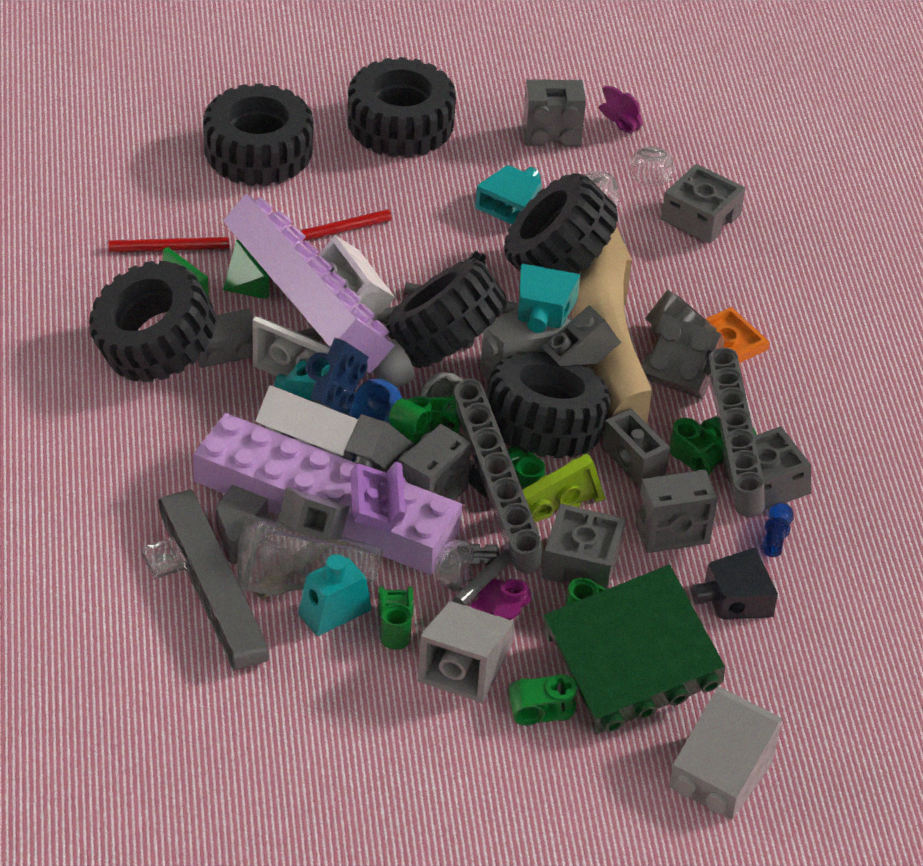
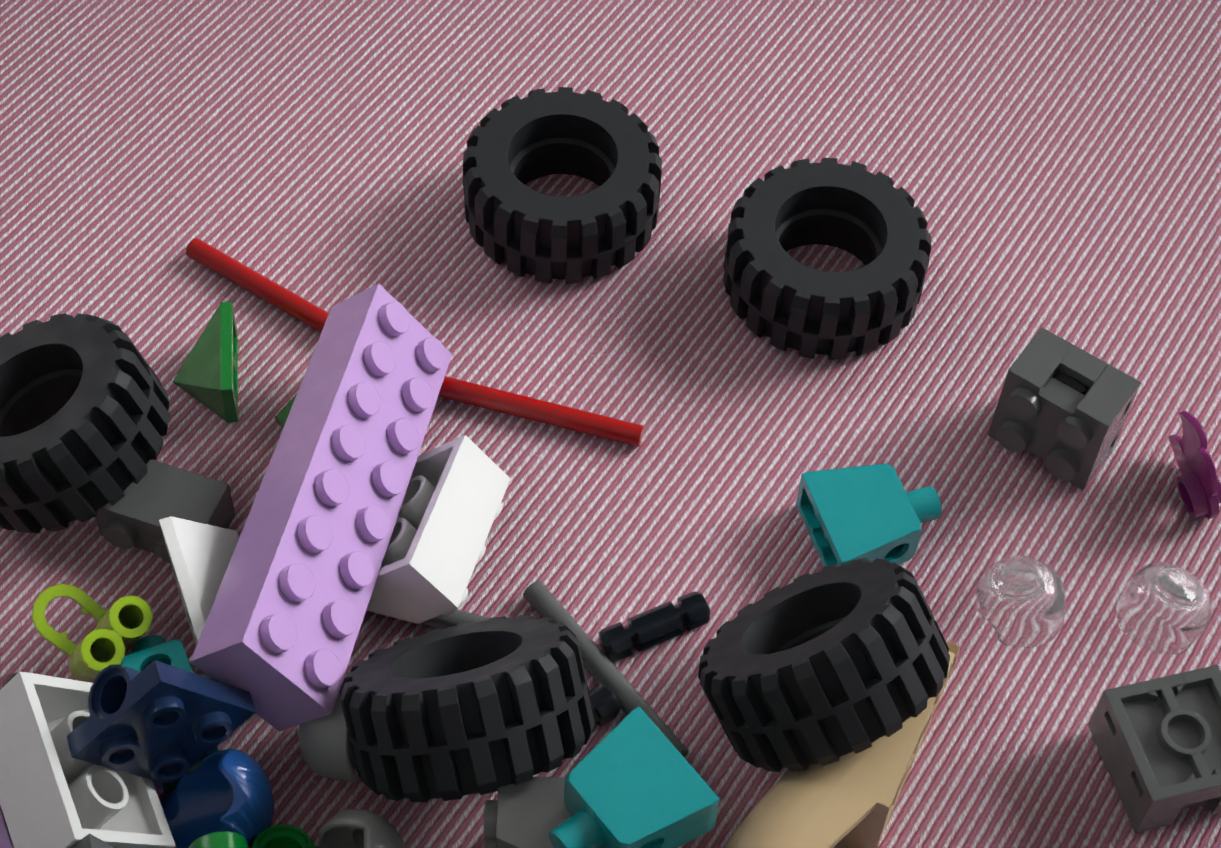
camera: 40 degrees right, 10 degrees up
(267, 373) = (105, 646): none -> lime piece

